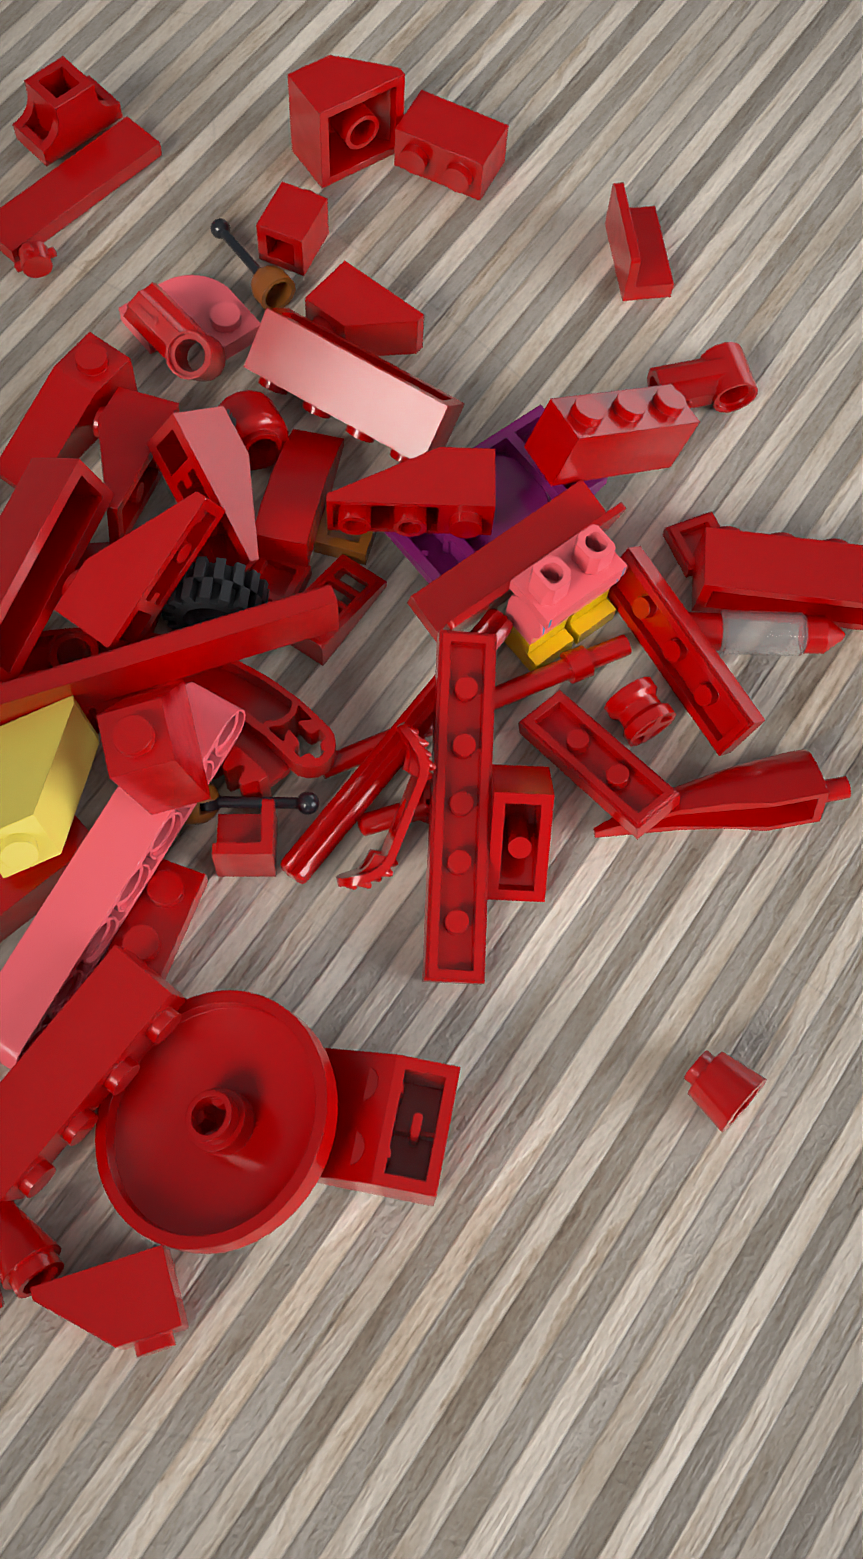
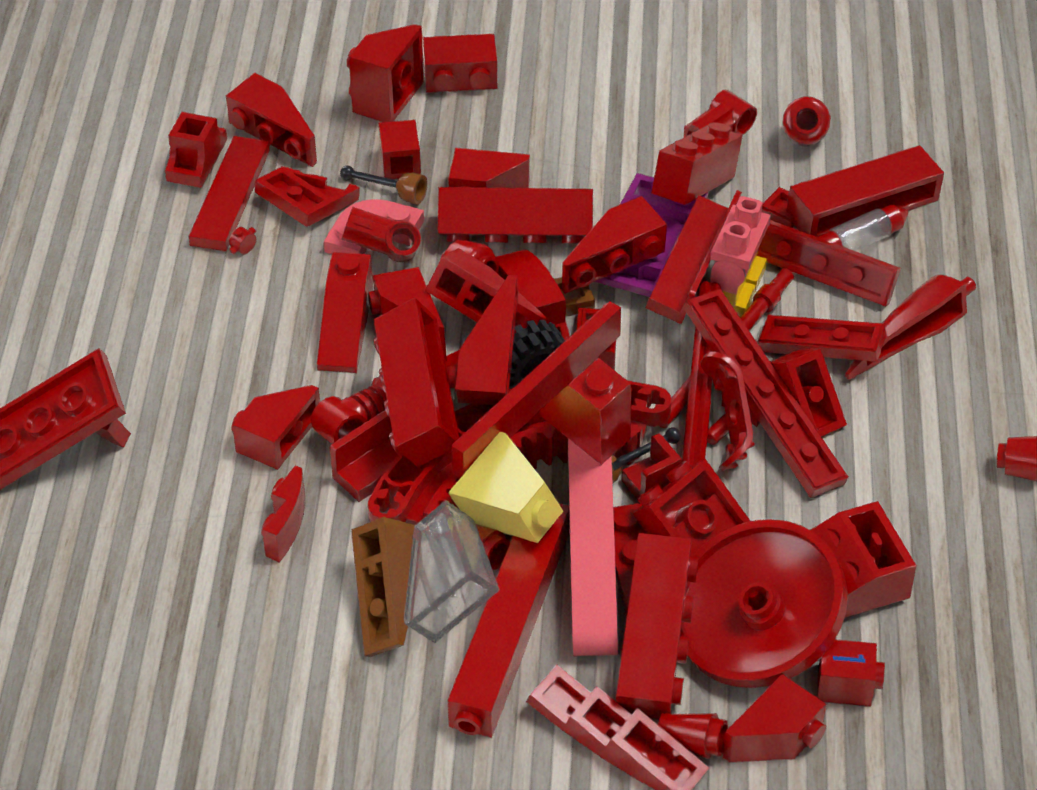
camera: 25 degrees left, 20 degrees down
(146, 236) = (304, 195): none -> red wing
(184, 109) = (270, 115): none -> red slope
(241, 932) = (690, 505): none -> red plate
(266, 1282) = (850, 673): none -> red brick
(637, 249) = (619, 70): red panel -> none
(640, 711) = (824, 300): red wheel -> none
(805, 438) = (806, 121): none -> red head

